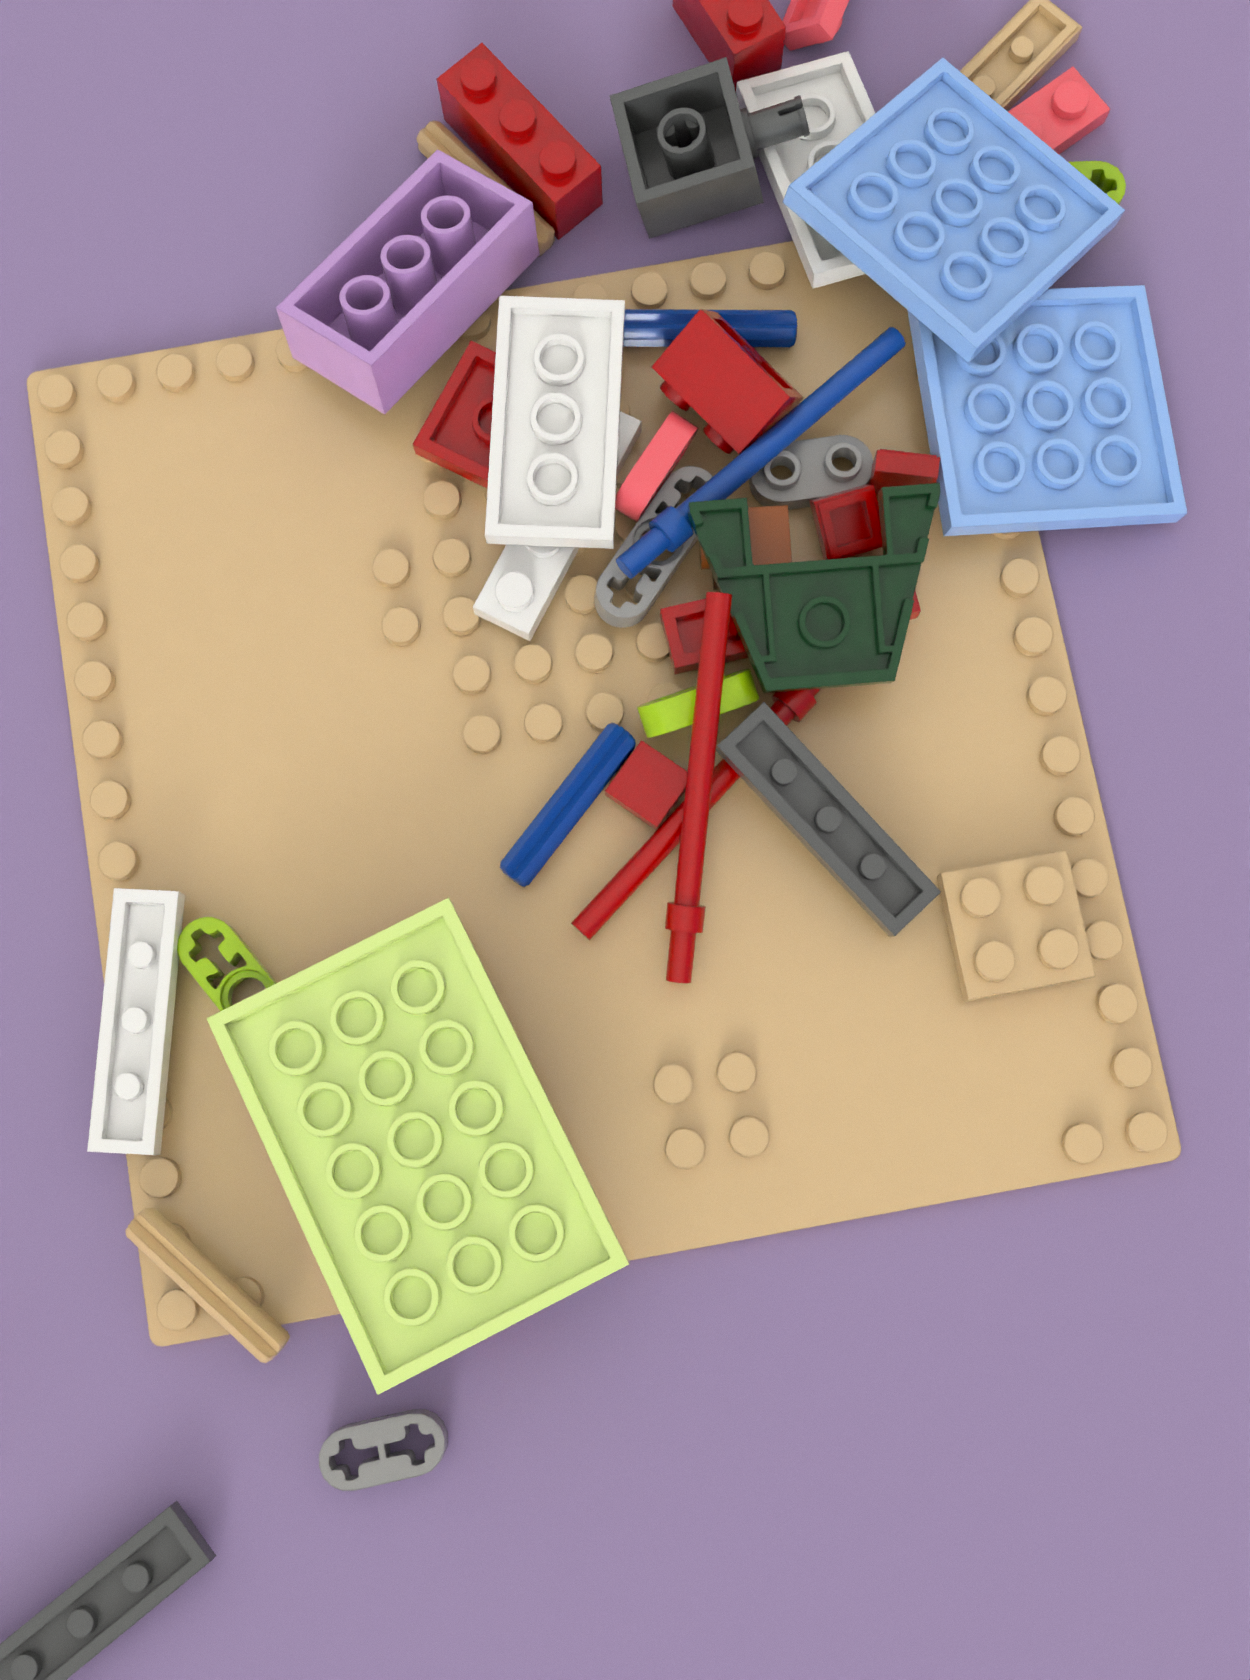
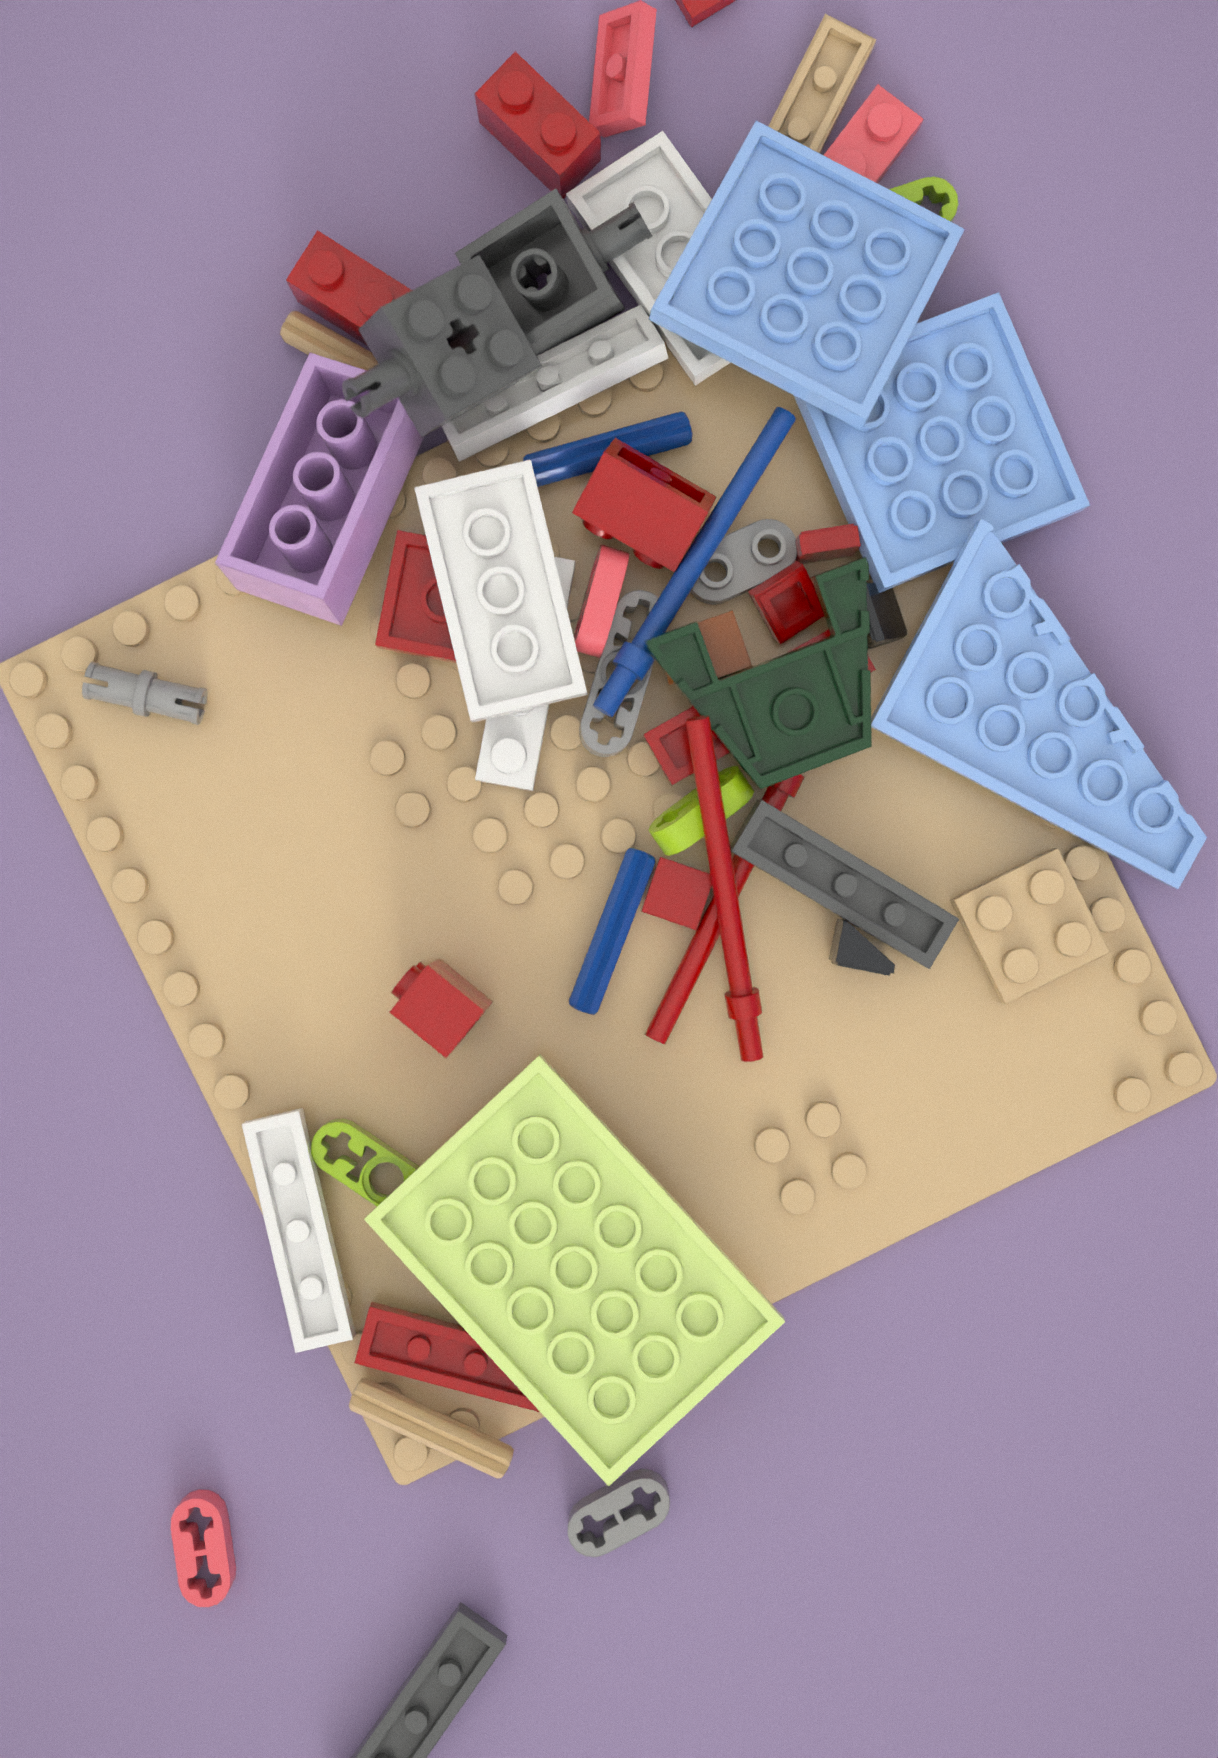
camera: 20 degrees left, 10 degrees up
(167, 434) = (144, 693): none -> light grey pin
(237, 1202) = (434, 1354): none -> red plate
(360, 819) = (438, 1005): none -> red brick
(568, 166) = (442, 349): none -> dark grey brick
(668, 248) = (564, 379): none -> white plate
(823, 897) = (854, 951): none -> black slope
(942, 568) = (885, 617): none -> black slope
(1056, 691) = (1019, 713): none -> light blue wing

